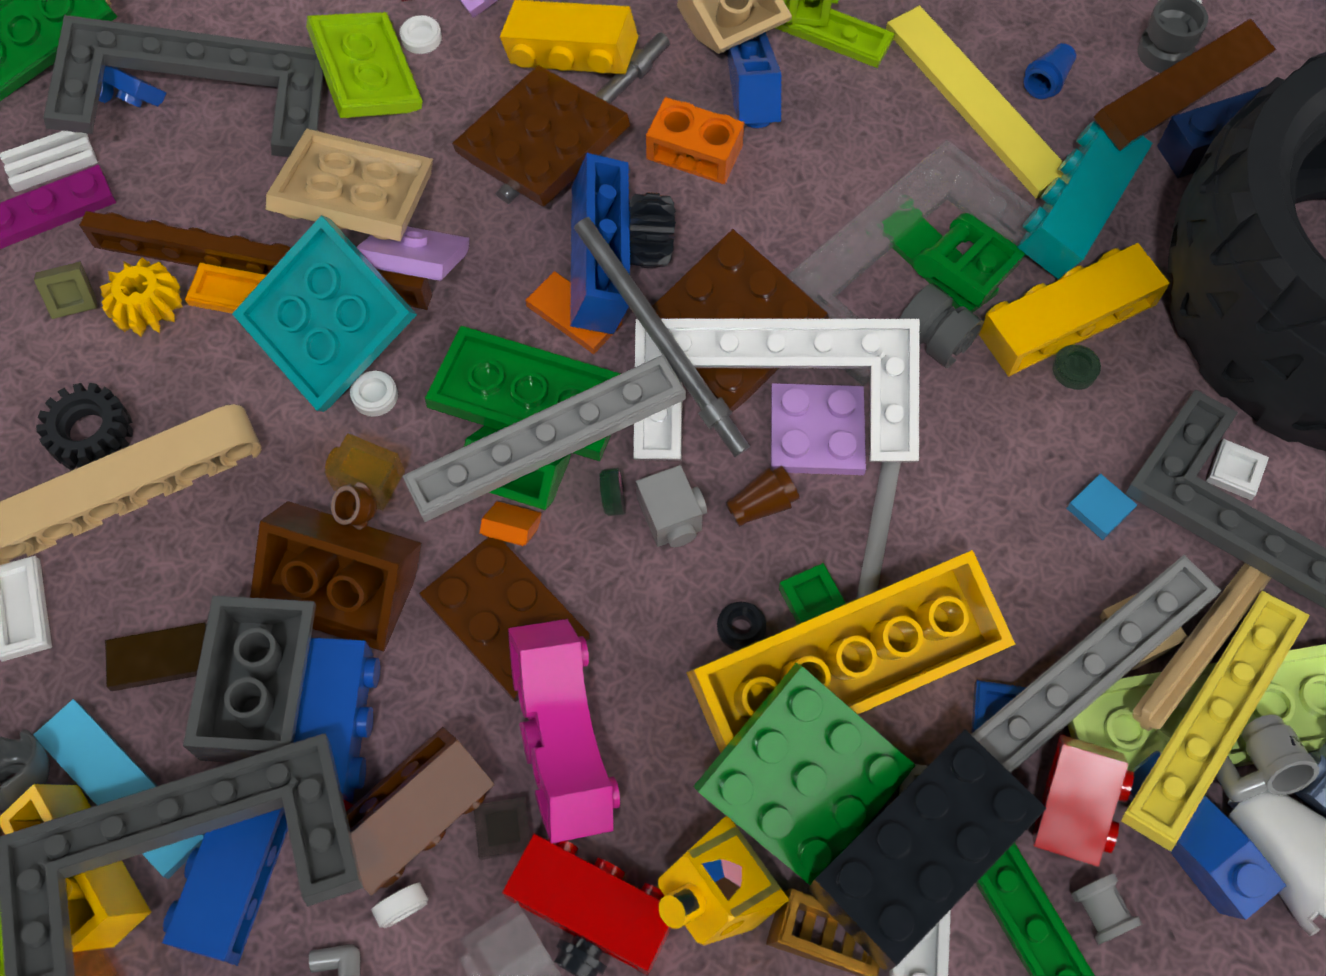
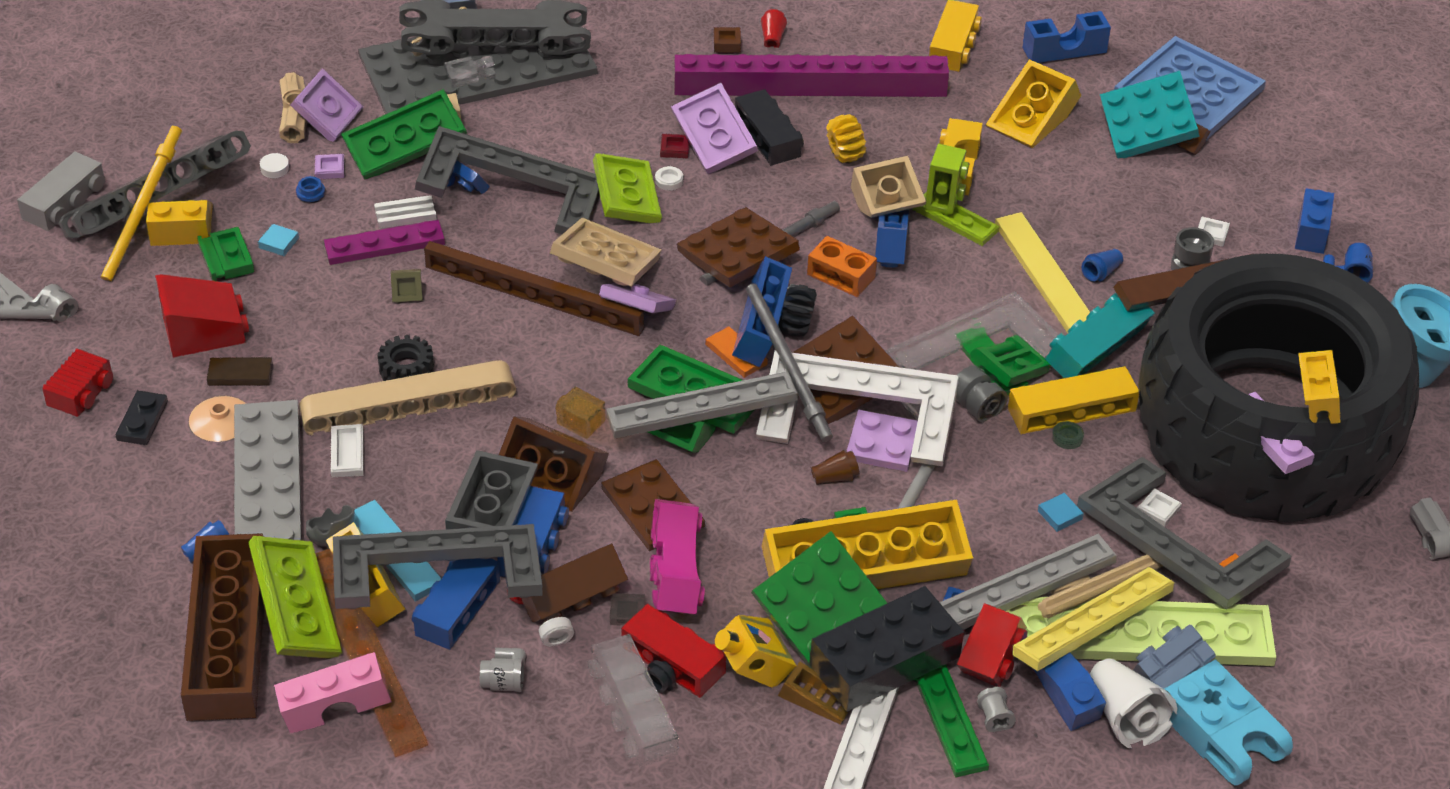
camera: 10 degrees right, 20 degrees down
(141, 296) = (454, 296): yellow gear -> none
(153, 657) = (428, 488): dark brown tile -> none
(221, 287) = (515, 305): light orange tile -> none
(324, 314) = (573, 320): teal plate -> none
(354, 505) = (571, 423): reddish brown plate -> none
(374, 393) = (594, 375): white tile -> none
(510, 523) = (667, 455): orange tile -> none
(570, 36) = (771, 192): yellow brick -> none
(612, 491) = (738, 449): clear green tile -> none
(671, 507) = (774, 462): light grey brick -> none
(1279, 758) = (1123, 644): light grey piece -> none

